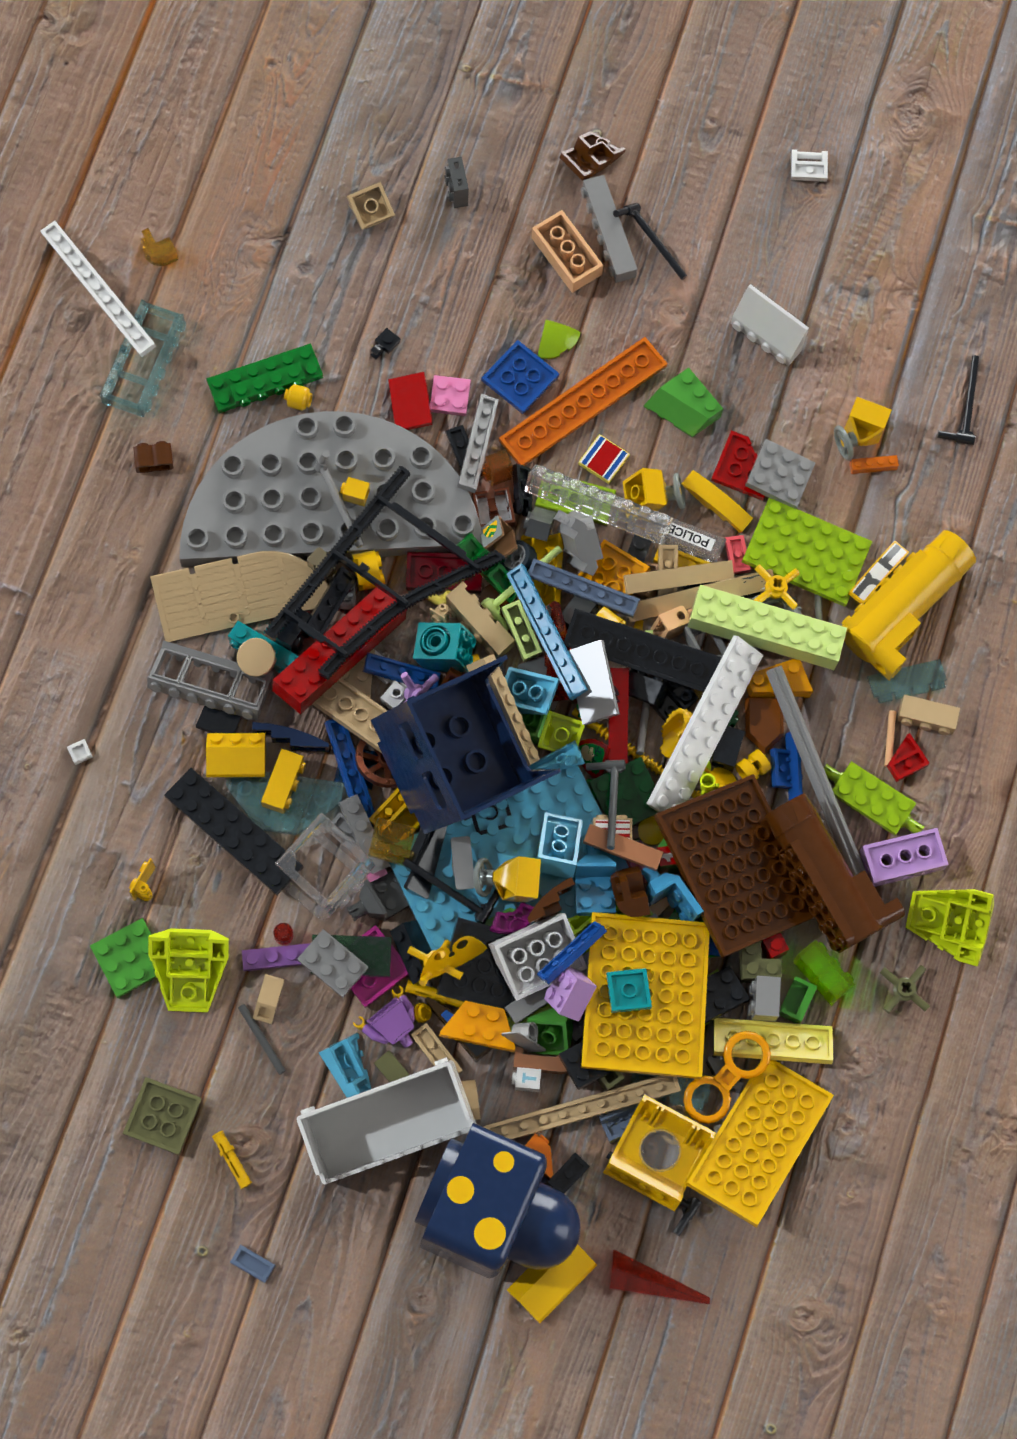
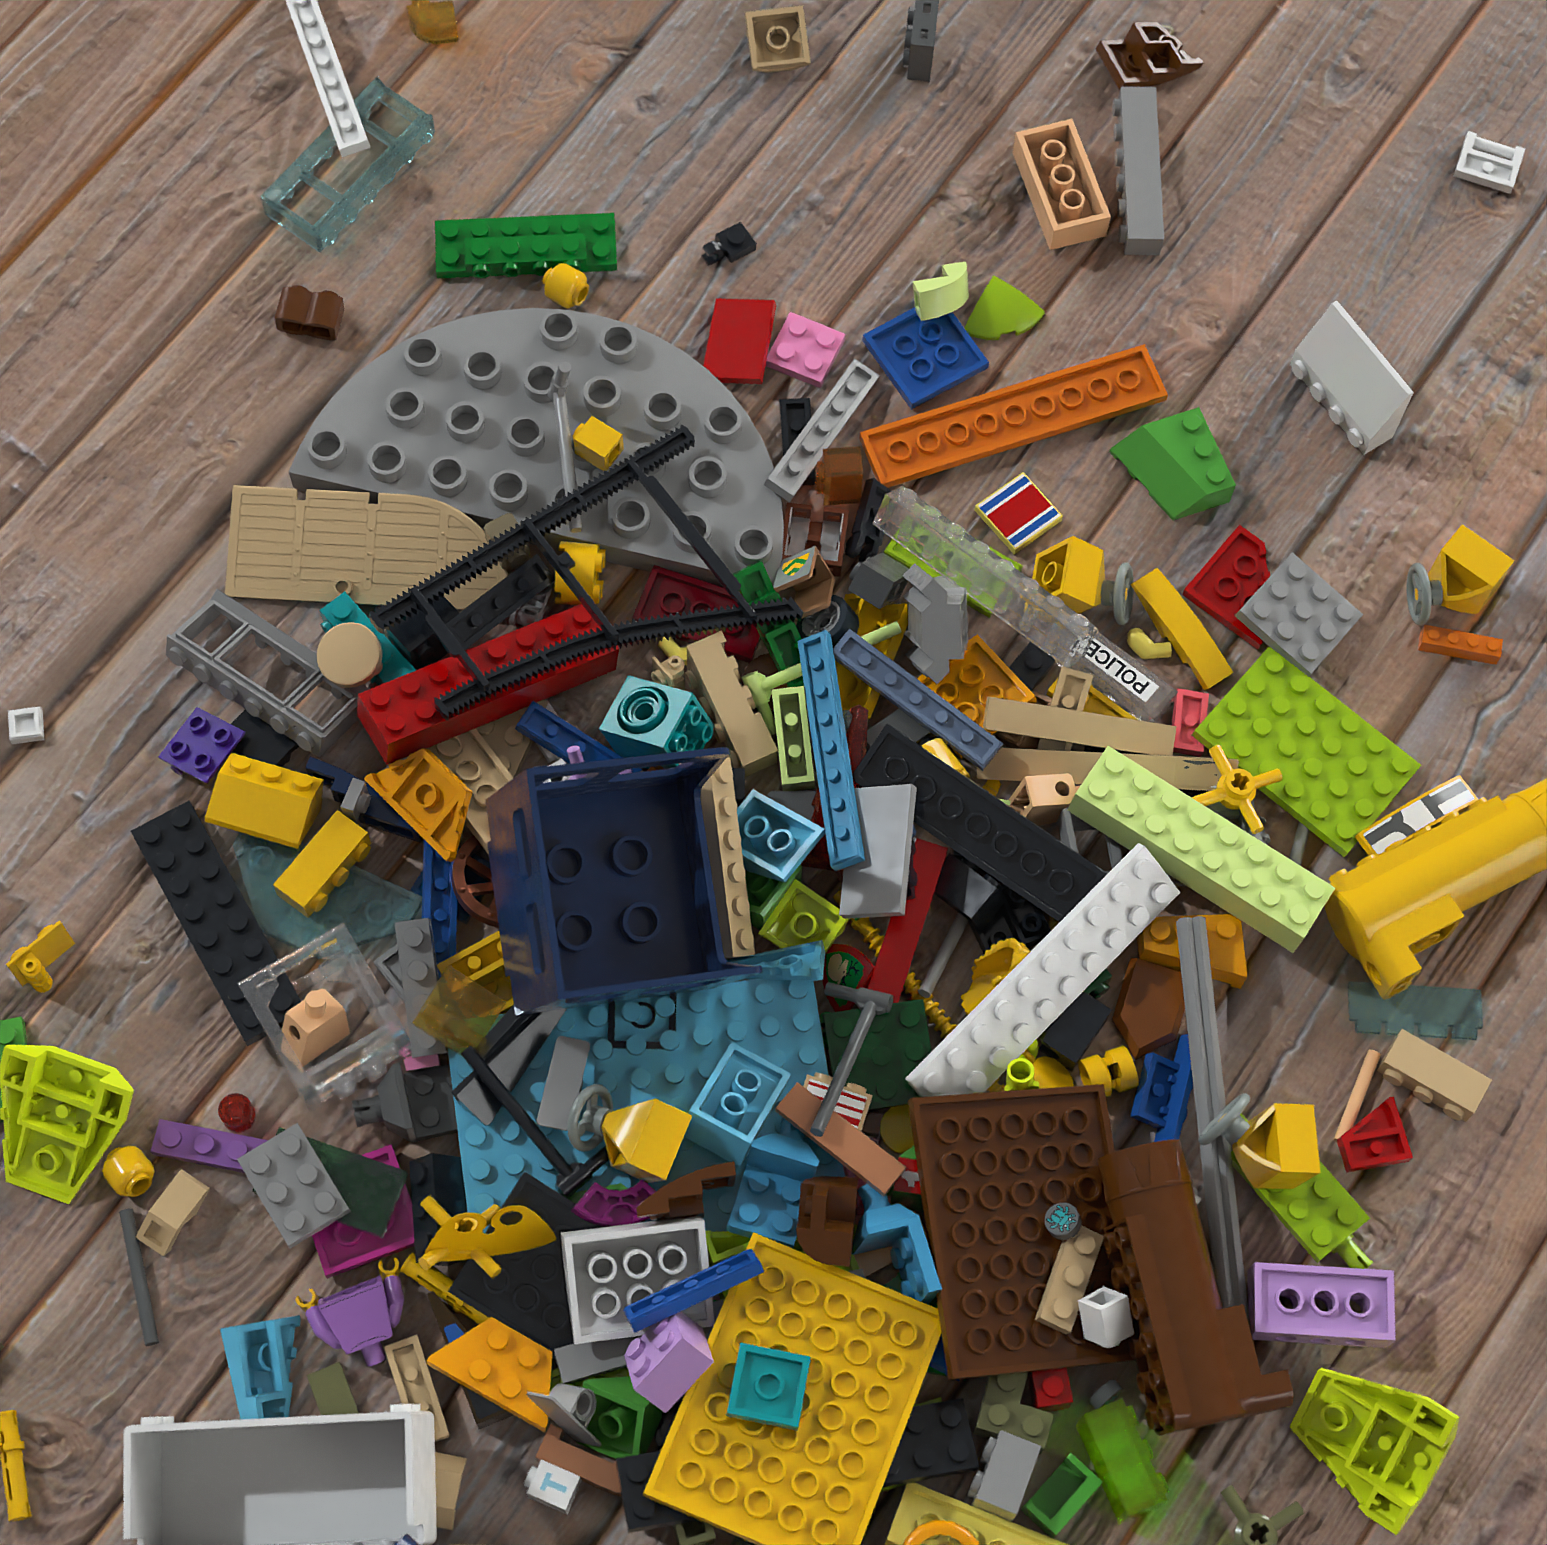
camera: 20 degrees right, 5 degrees down
(187, 734) = (201, 745): none -> dark purple hinge
(235, 984) = (128, 1171): none -> yellow head
(290, 739) = (356, 800): none -> light grey plate
(314, 870) = (315, 1025): none -> light nougat torso
(329, 726) = (426, 798): none -> light orange wing
(422, 1012) = (416, 1315): yellow plate -> none
(520, 341) = (942, 294): none -> yellowish green brick
(634, 211) = (1188, 154): black bar -> none
(700, 518) = (1145, 647): none -> light yellow arm
(755, 855) = (1063, 1221): none -> tile
(768, 884) = (1069, 1280): none -> tan plate
(794, 899) = (1106, 1317): none -> white brick
(804, 940) = (1106, 1394): none -> dark grey tile
(854, 781) = (1273, 1147): none -> yellow piece

